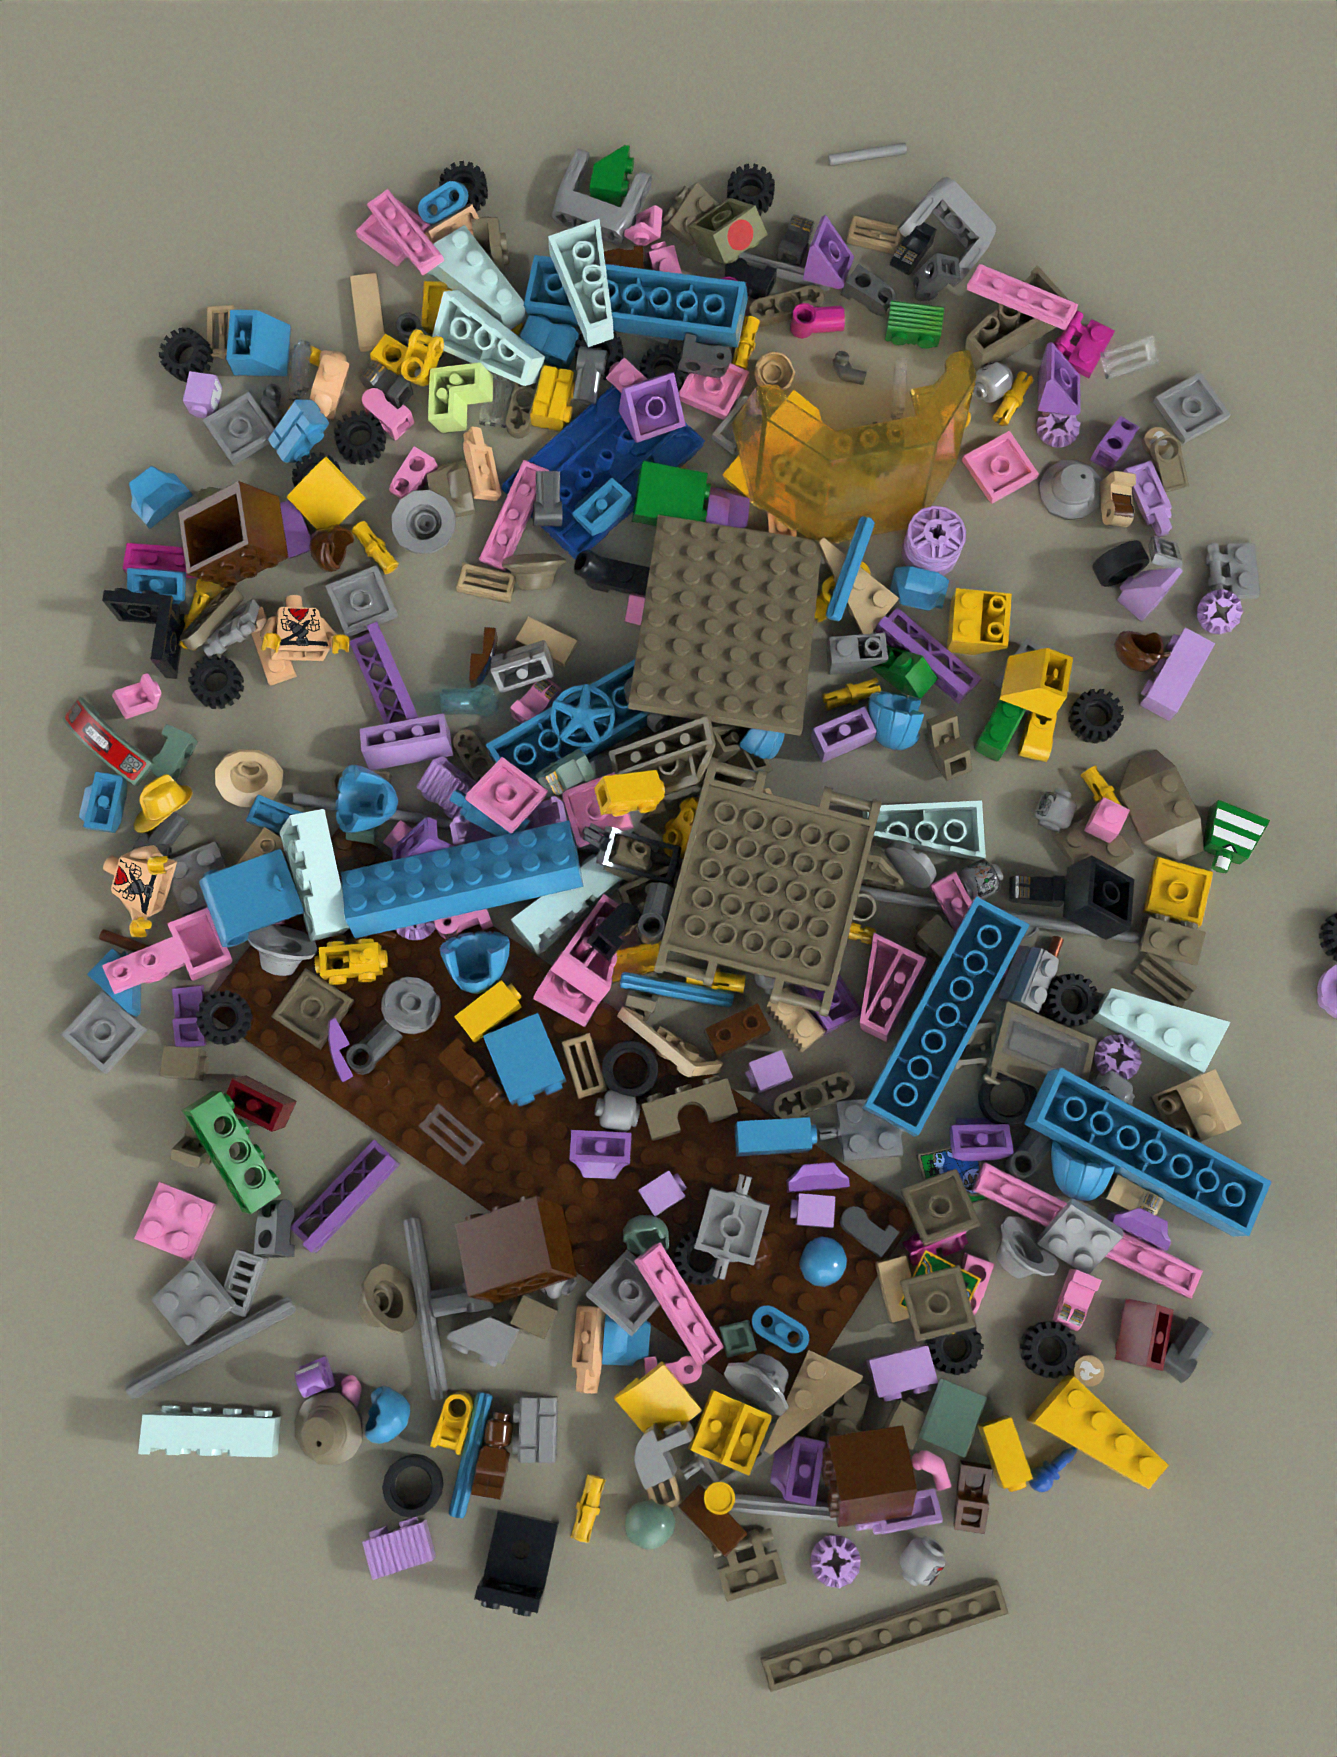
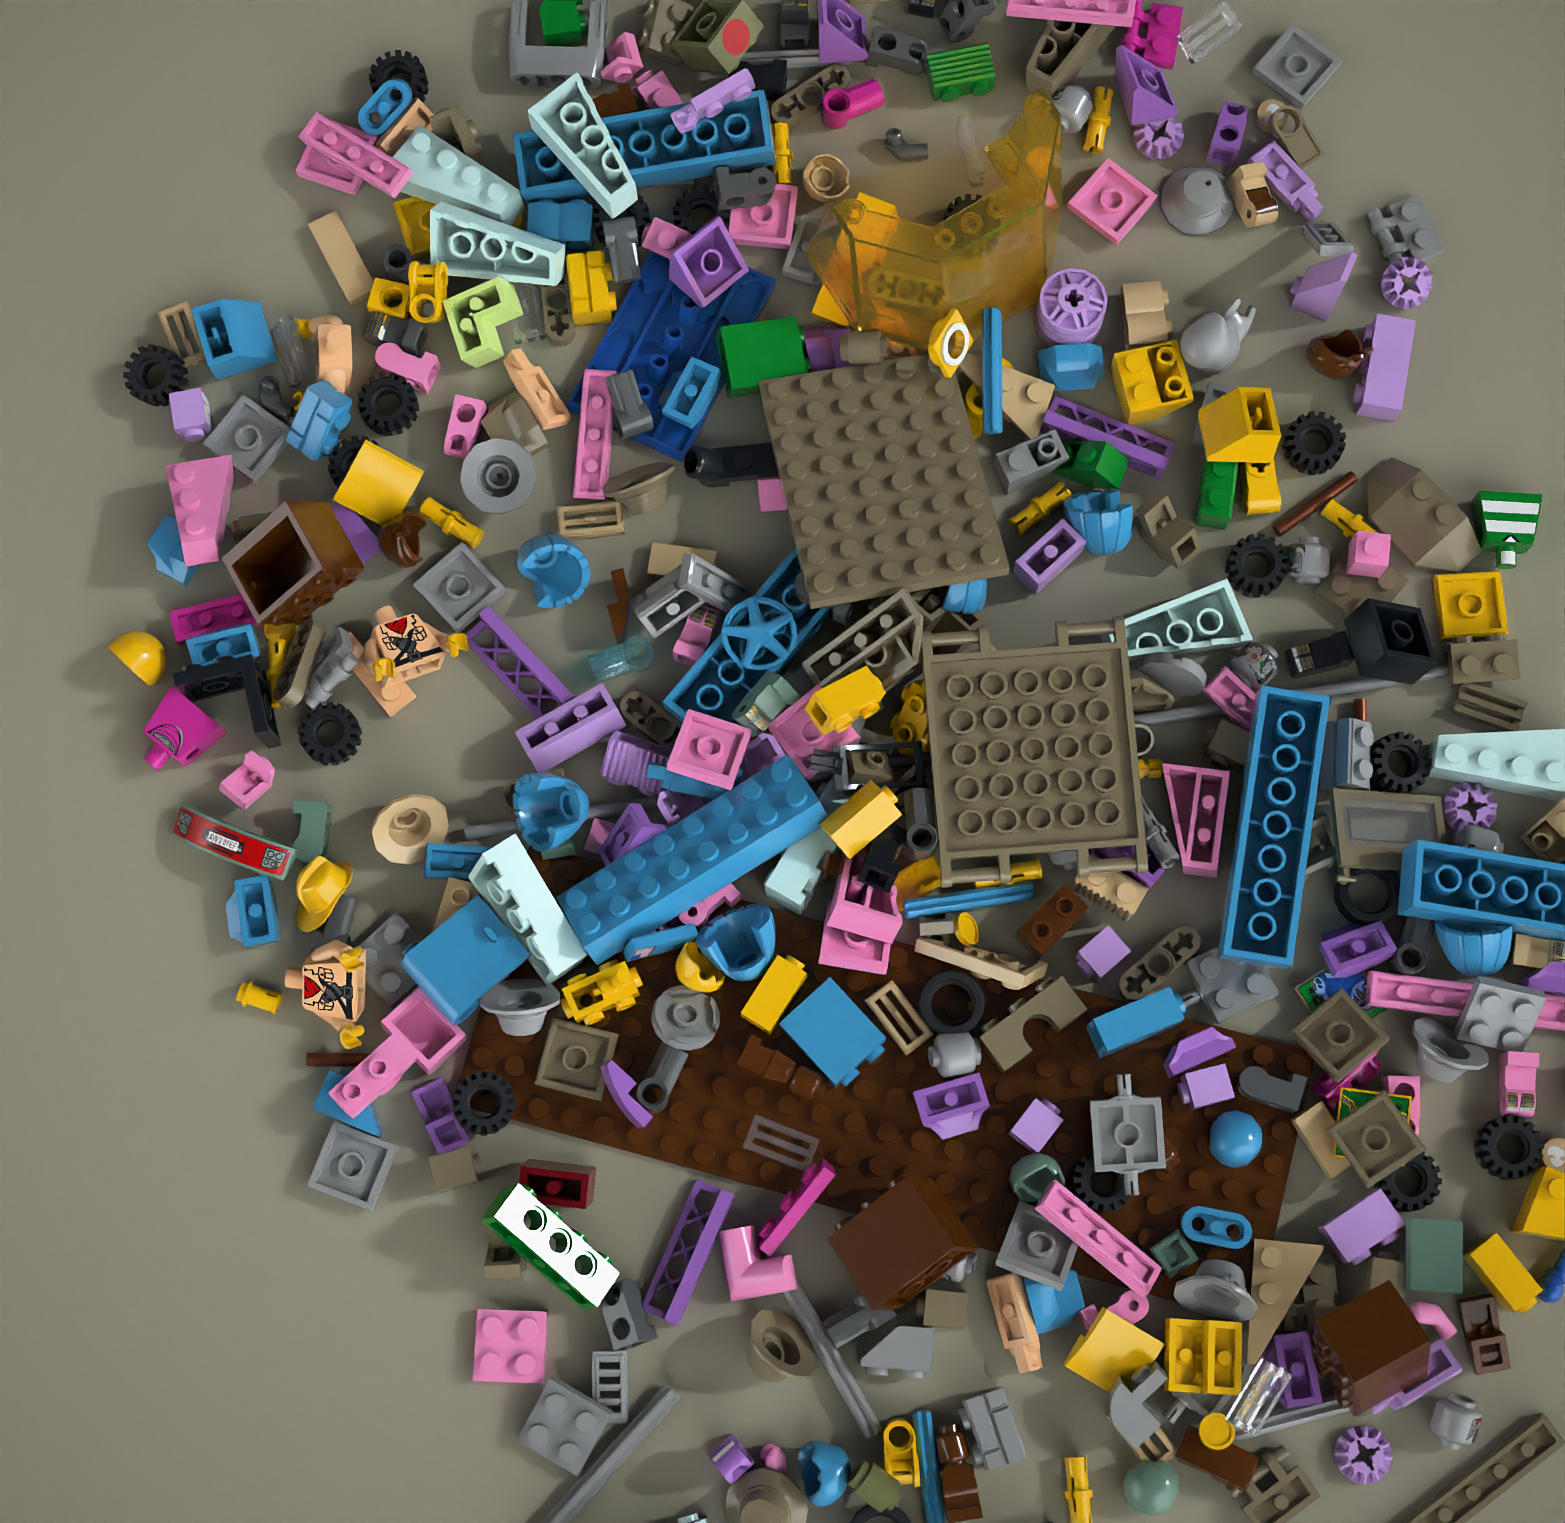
camera: 15 degrees left, 0 degrees up
(81, 871) = (259, 997): none -> yellow pin
(92, 570) = (142, 654): none -> yellow helmet
(99, 640) = (179, 731): none -> dark pink torso
(179, 466) = (200, 505): none -> bright pink wedge
(385, 1228) = (747, 1273): none -> bright pink brick
(411, 937) = (659, 942): none -> dark azure tile
(420, 1442) = (875, 1486): none -> olive brick
(432, 970) = (696, 970): none -> yellow hair
(442, 610) = (556, 569): none -> dark azure hair
(442, 1189) = (795, 1206): none -> dark pink plate
(559, 662) = (711, 583): none -> light grey tile
(572, 922) = (832, 865): none -> reddish brown hand
(608, 892) = (861, 818): none -> yellow brick
(665, 1013) = (966, 929): none -> yellow piece
(701, 276) = (712, 100): none -> lavender hinge
(753, 515) = (864, 347): none -> dark tan brick
(760, 1480) = (1255, 1395): none -> clear tile
(813, 528) = (939, 342): none -> yellow piece
(847, 989) = (1157, 839): none -> light grey pin
(993, 565) = (1144, 315): none -> tan brick
(1016, 783) = (1264, 548): none -> black tyre
(1042, 604) = (1215, 339): none -> light grey piece
(1079, 765) = (1315, 503): none -> copper bar
(1120, 563) = (1282, 266): black tyre -> none

